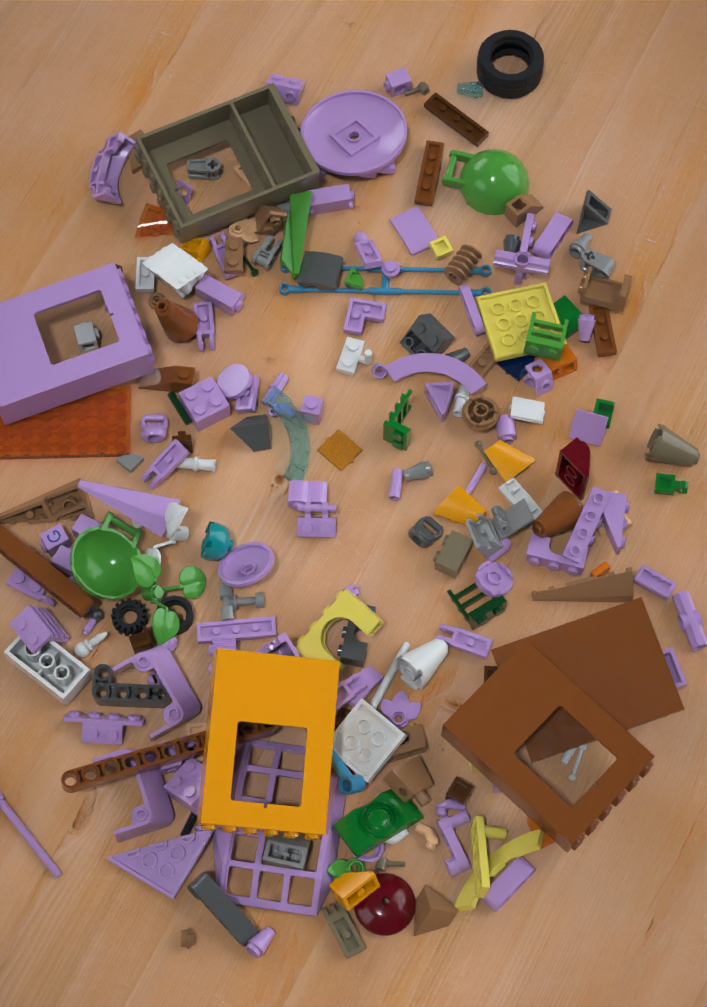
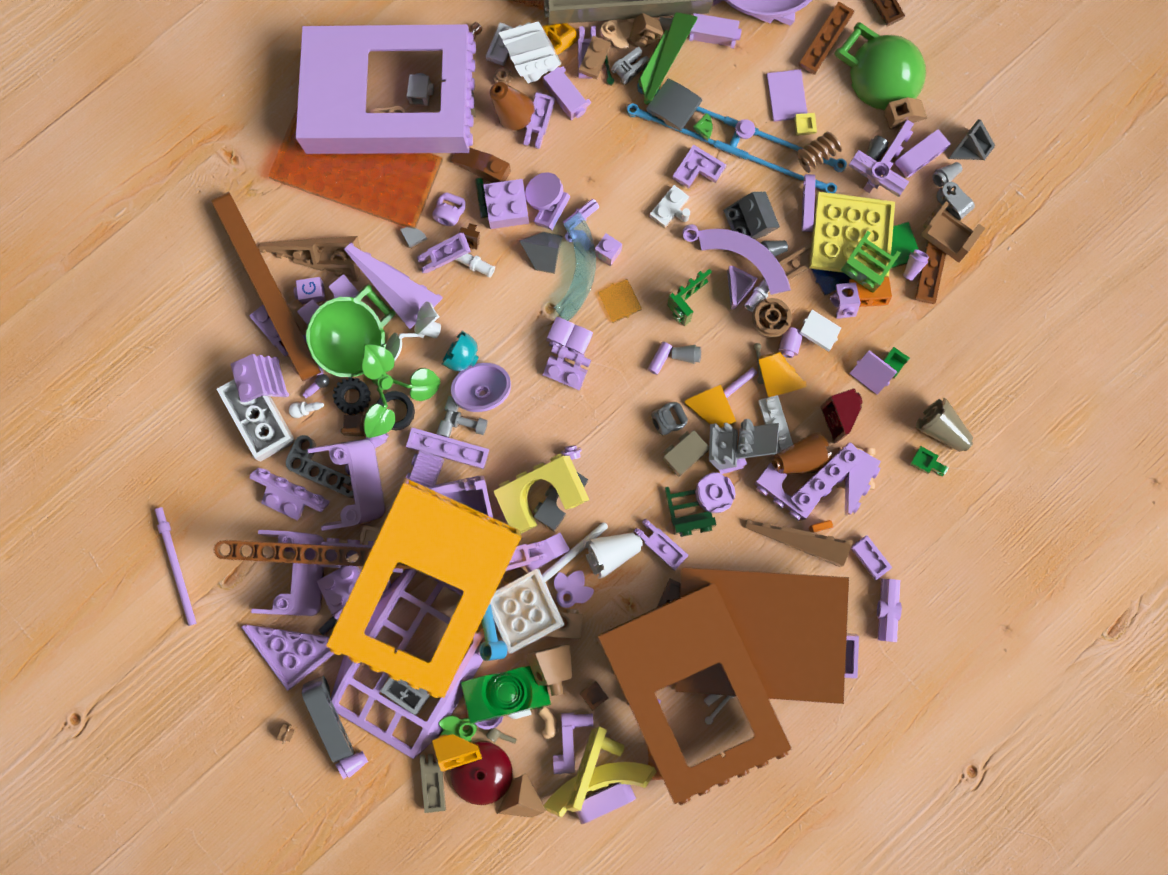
camera: 20 degrees right, 15 degrees up
(367, 251) = (729, 100): lavender plate -> none
(447, 805) = (572, 701): lavender arm -> none

